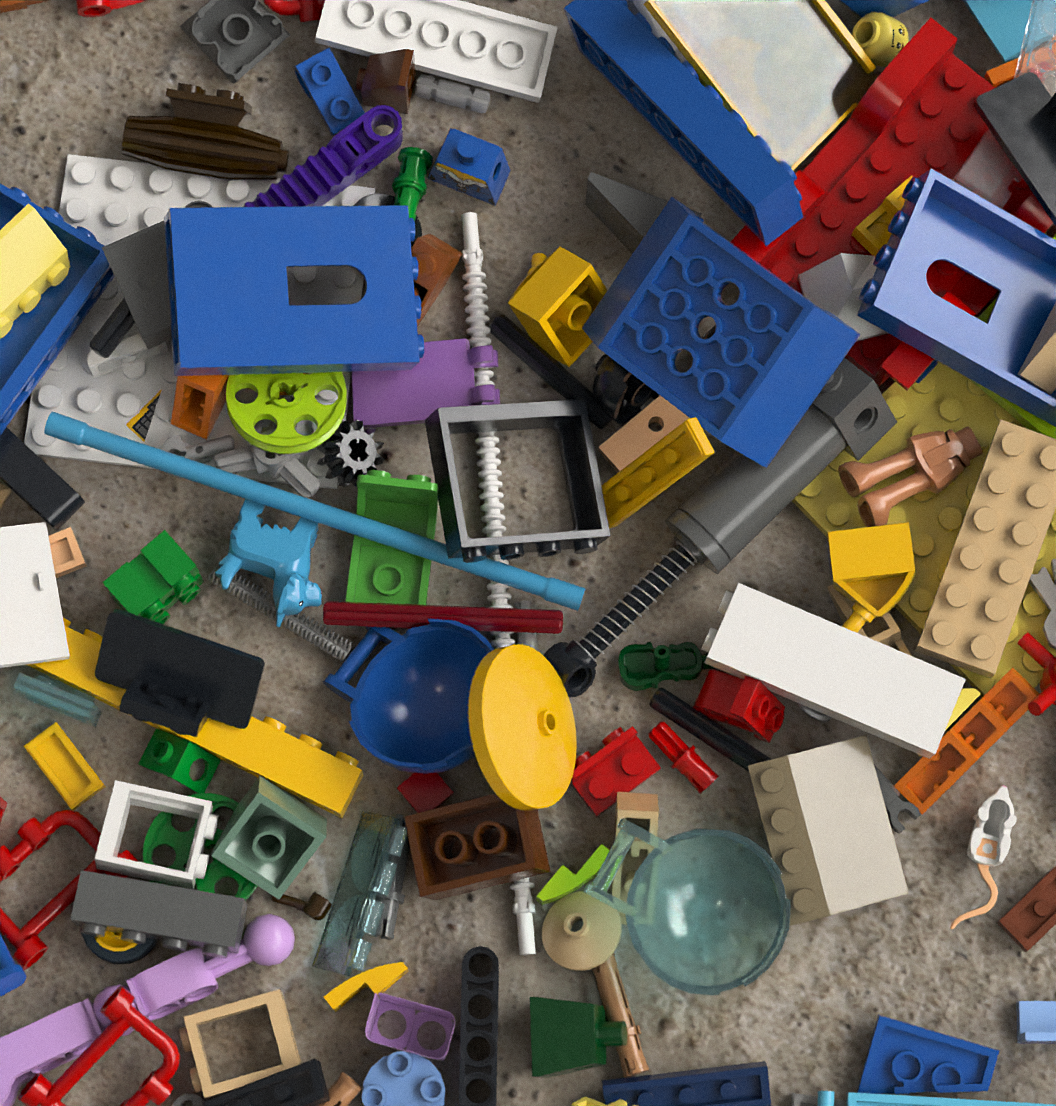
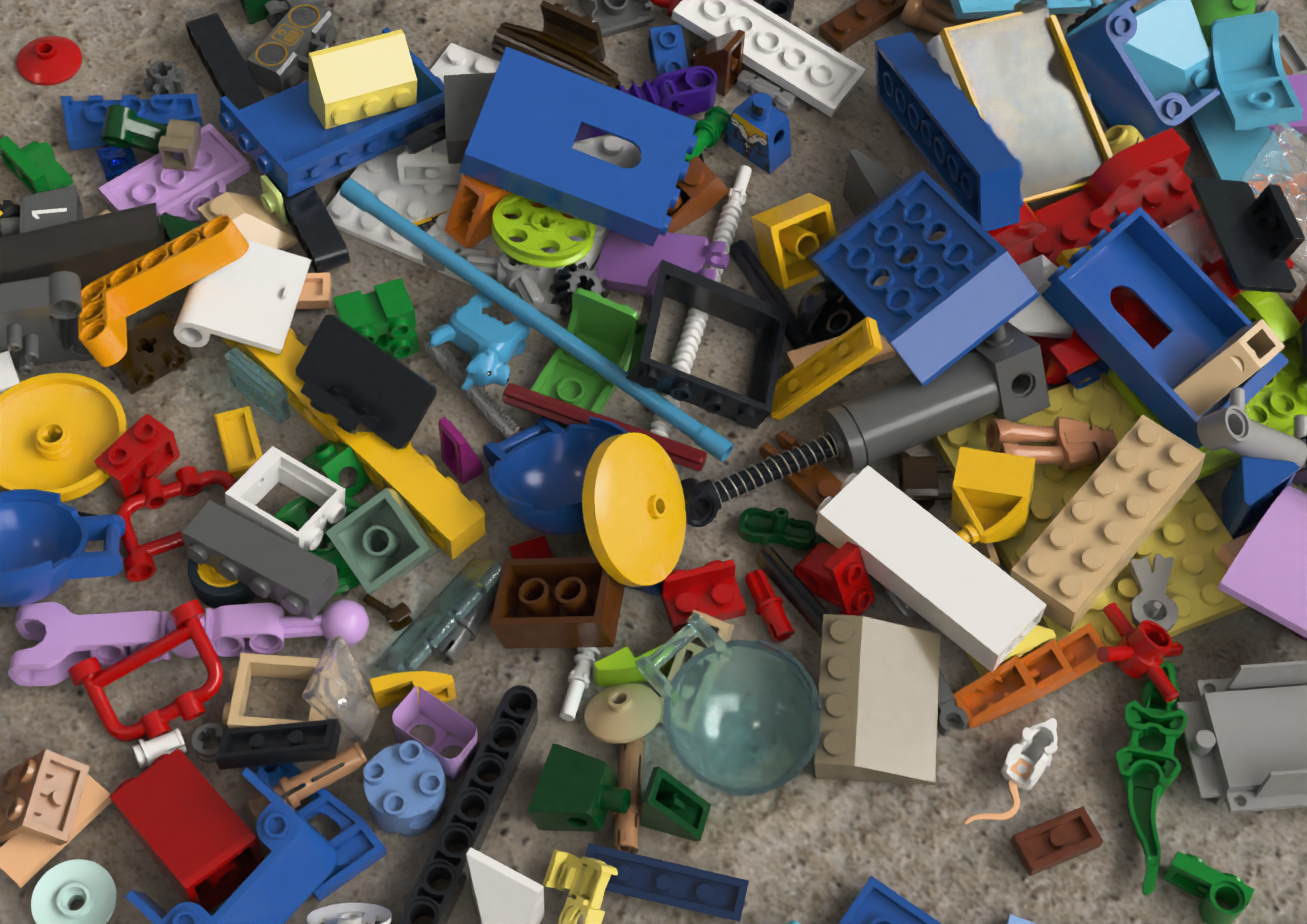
camera: 20 degrees right, 20 degrees down
(300, 1020) = (341, 692): none -> clear wing
(305, 701) = (457, 453): none -> magenta slope
(669, 1013) = (673, 807): none -> dark green slope
(688, 596) = (810, 484): none -> dark orange hinge
(788, 557) = (920, 480): none -> dark brown piece

